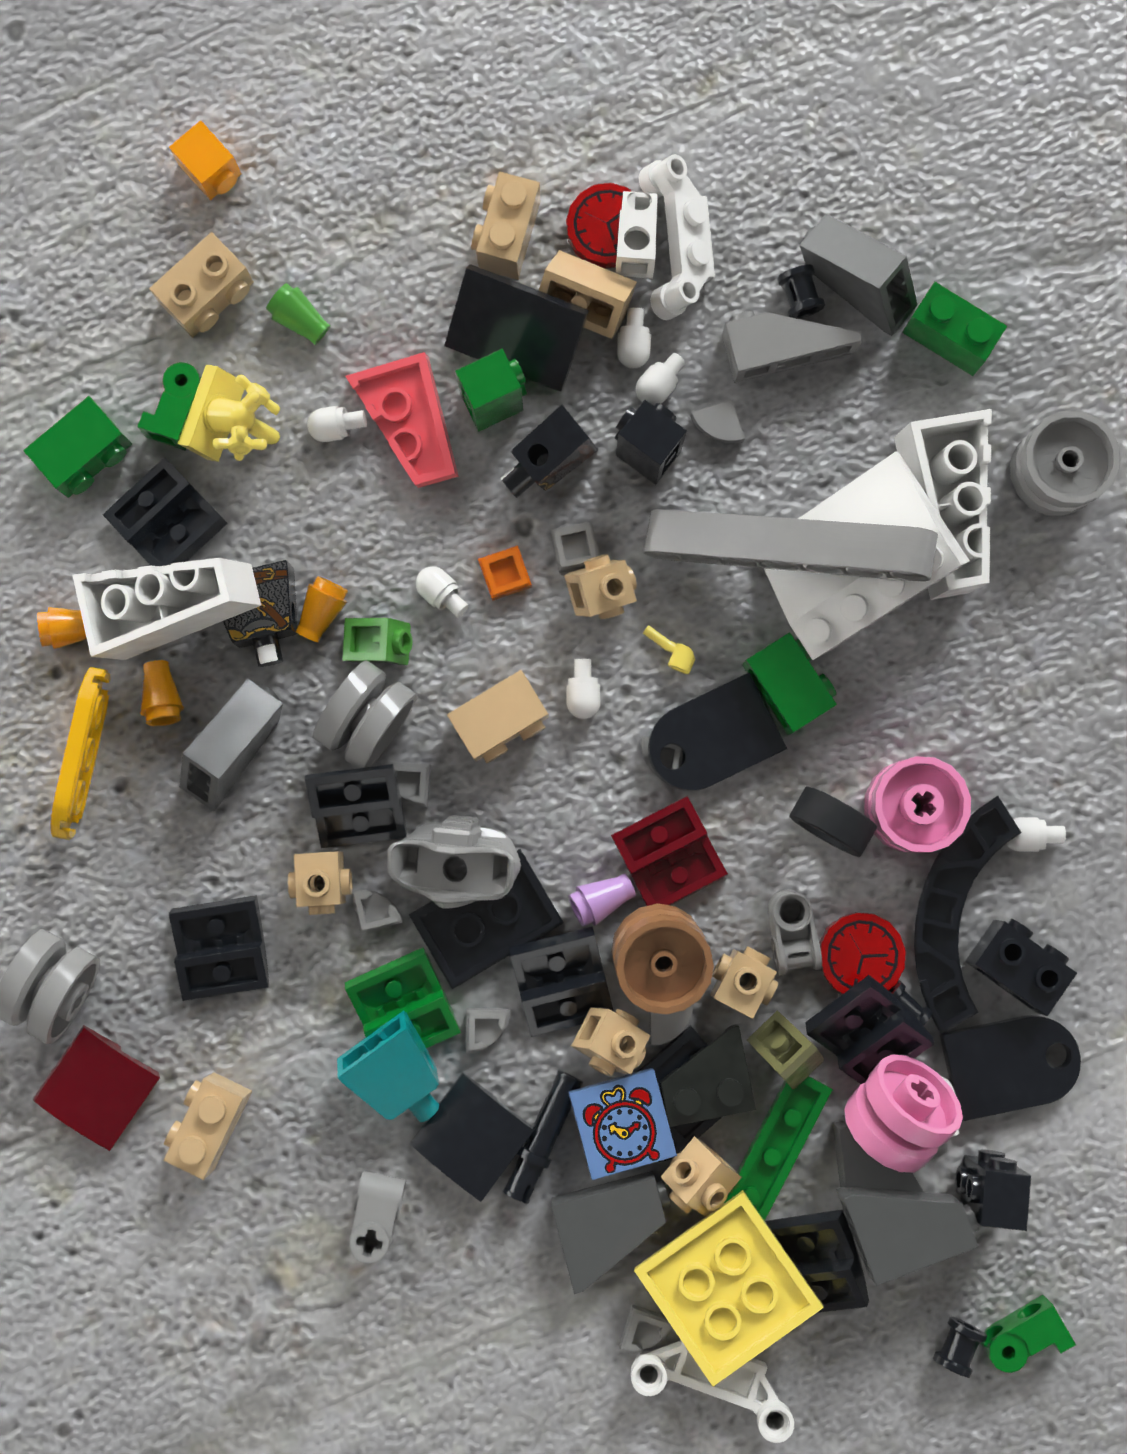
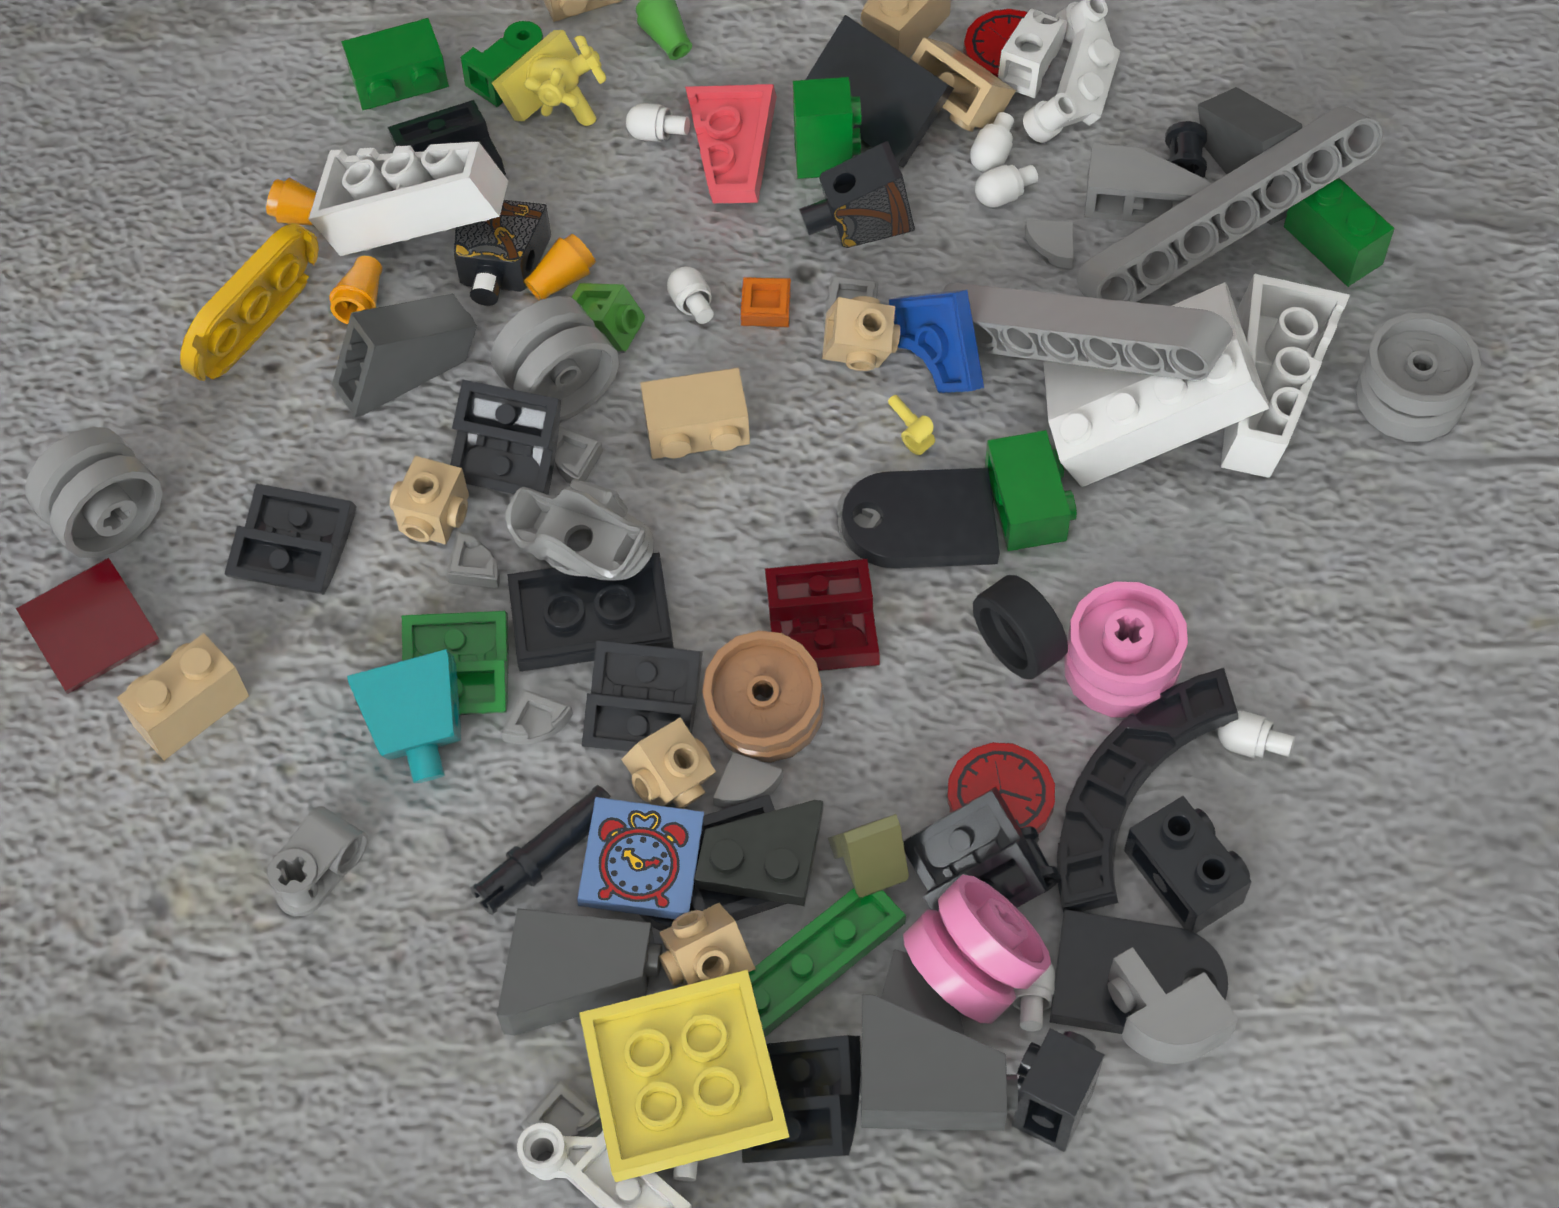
camera: 25 degrees right, 25 degrees down
(471, 1137) = (464, 820): black slope -> none
(583, 691) = (798, 428): white cylinder -> none
(599, 899) = (716, 626): lavender cone -> none
(649, 439) = (968, 218): black brick -> none
(672, 568) = (943, 336): none -> blue tile
(749, 997) = (848, 760): tan brick -> none
(794, 935) = (927, 741): light grey piece -> none
(868, 355) = (1251, 206): none -> light grey beam
(1059, 1106) = (1169, 1025): none -> light grey brick

